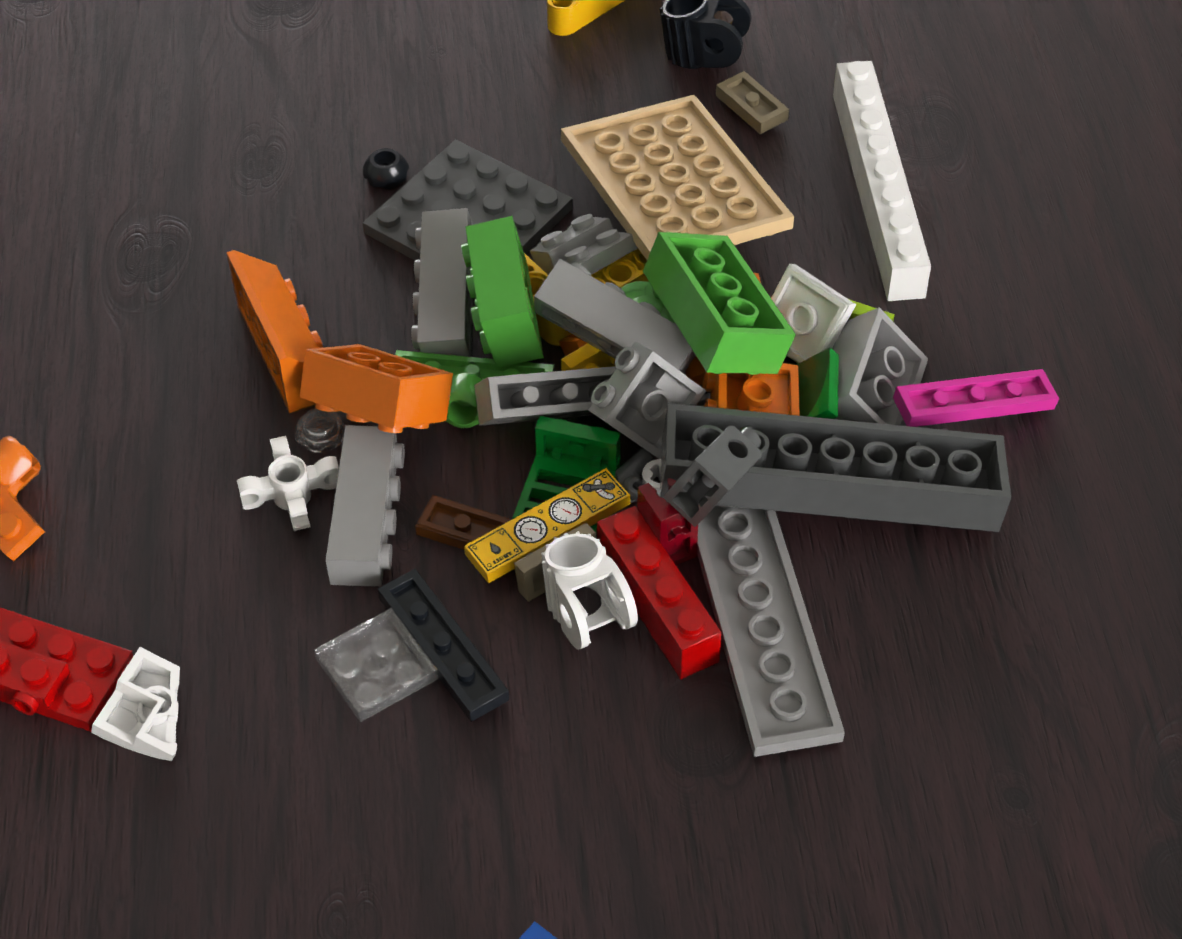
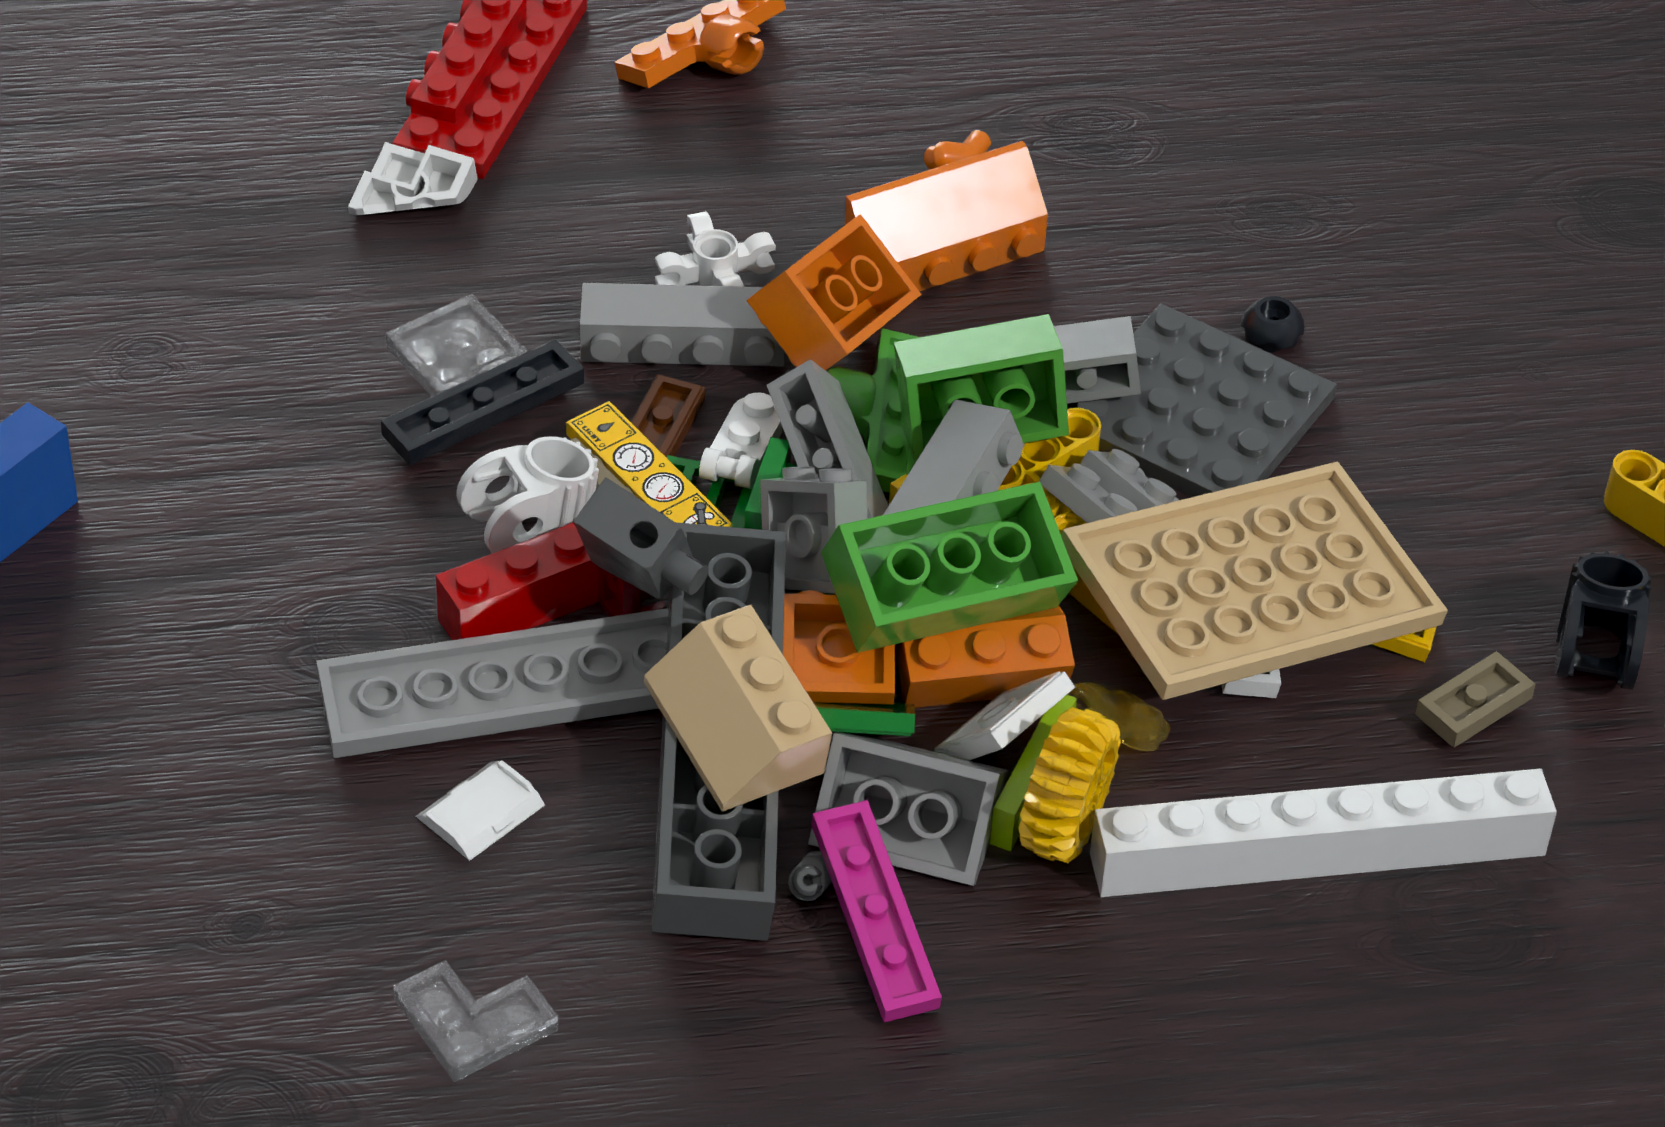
camera: 85 degrees right, 5 degrees down
(172, 327) = (949, 152): none -> orange arm
(504, 466) = (742, 441): none -> white plate
(774, 266) = (1139, 723): none -> clear yellow plate
(857, 428) = (739, 709): none -> tan slope
(879, 273) = (1069, 784): none -> yellow gear
(880, 645) = (482, 808): none -> white piece
(1106, 640) = (468, 1031): none -> clear plate

